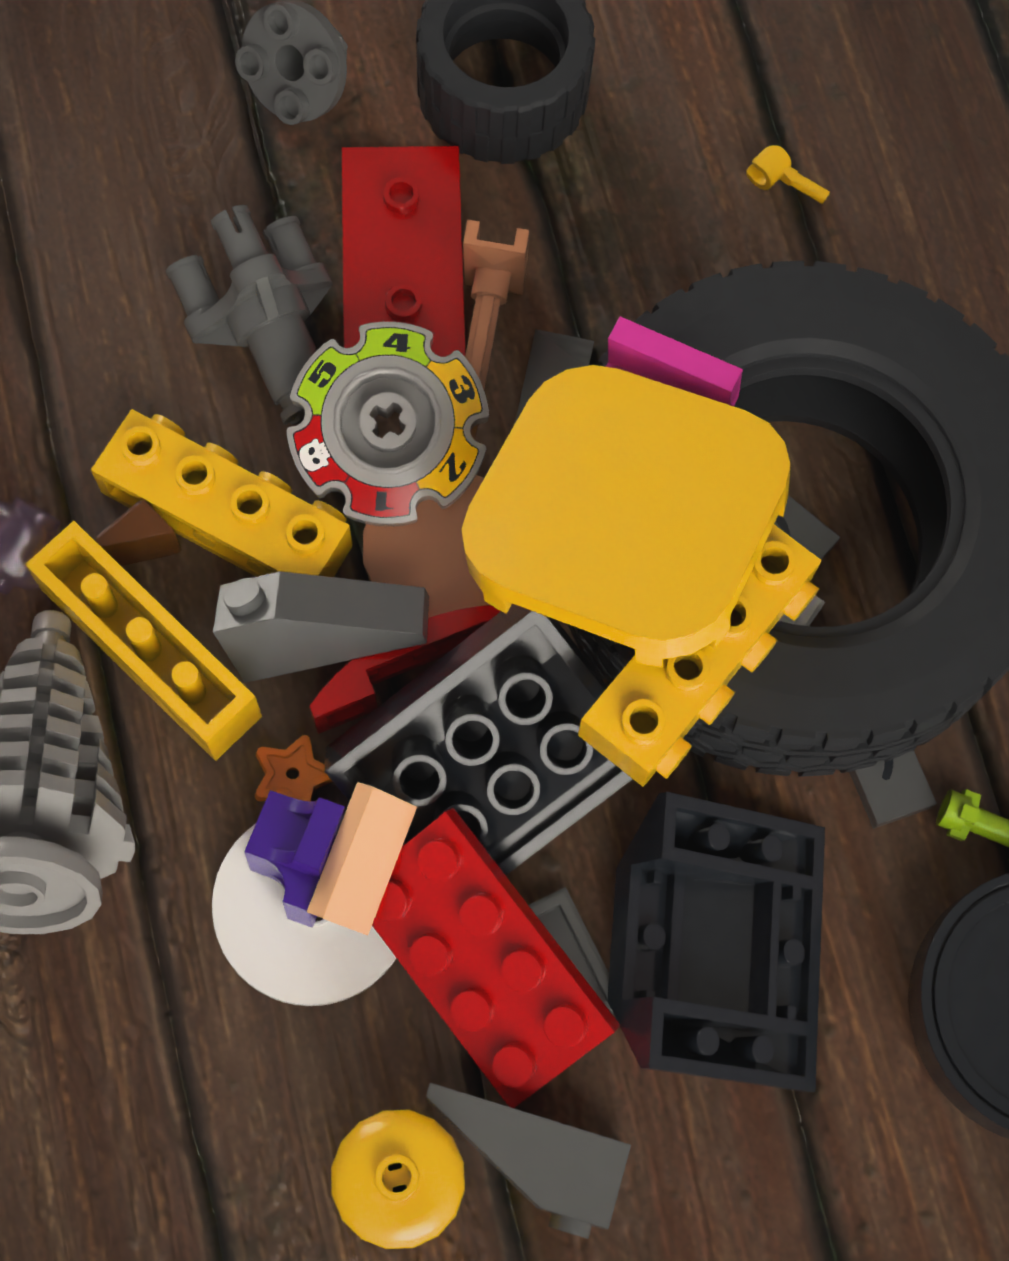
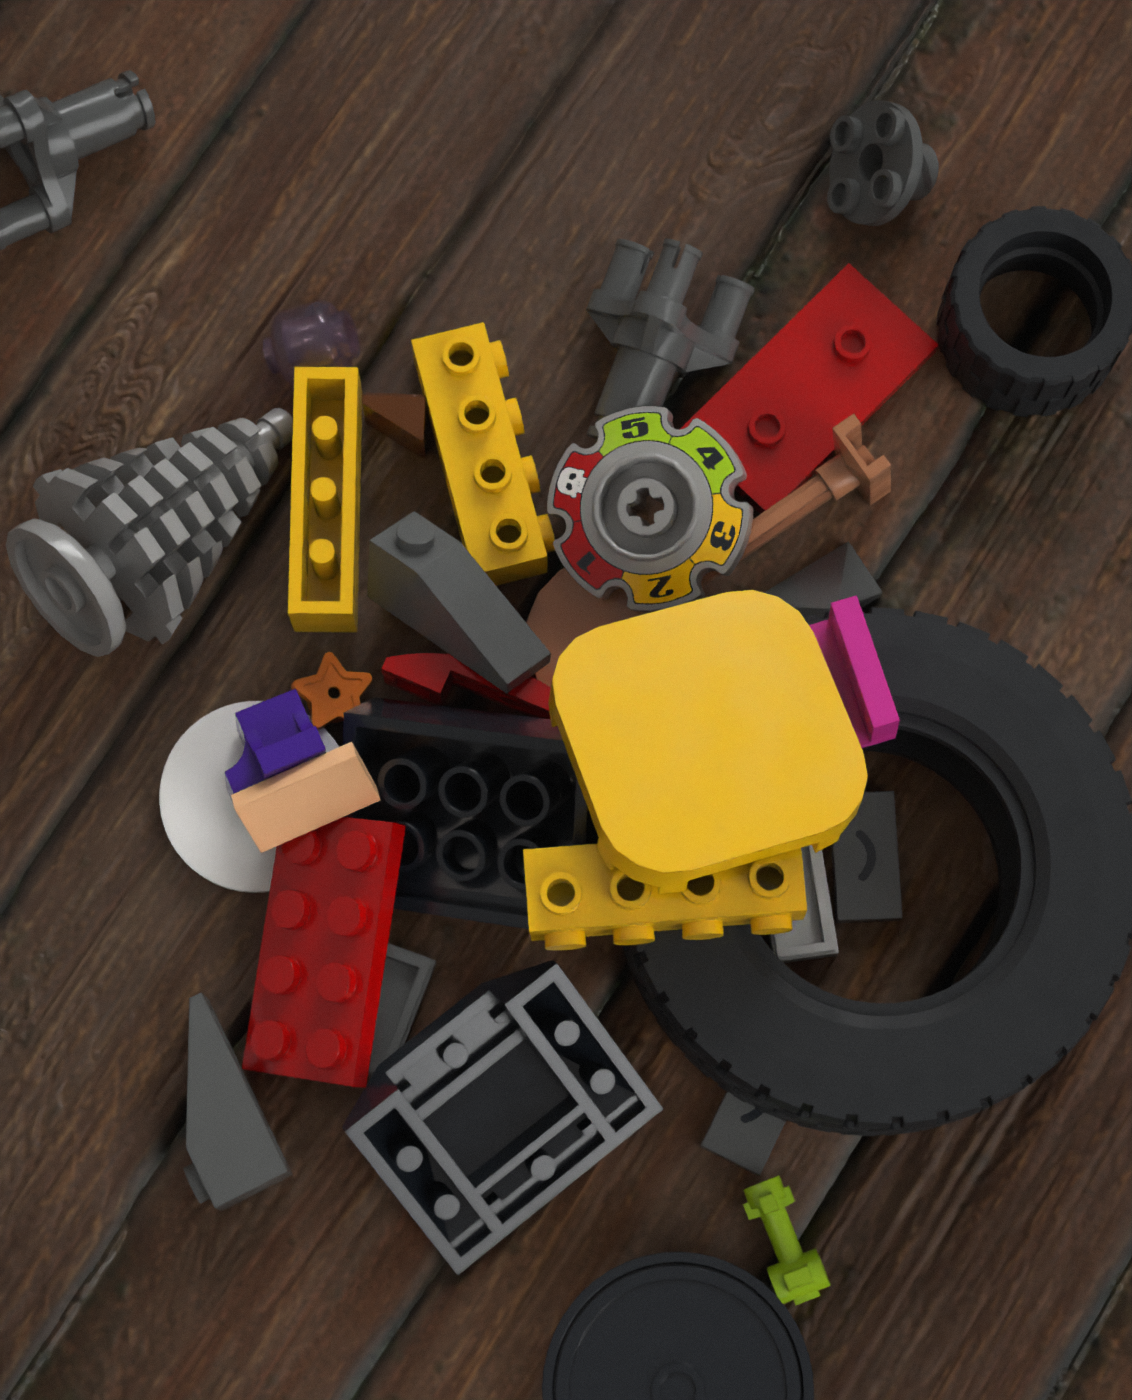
camera: 50 degrees right, 5 degrees up
(429, 1169) = (141, 1048): yellow head -> none

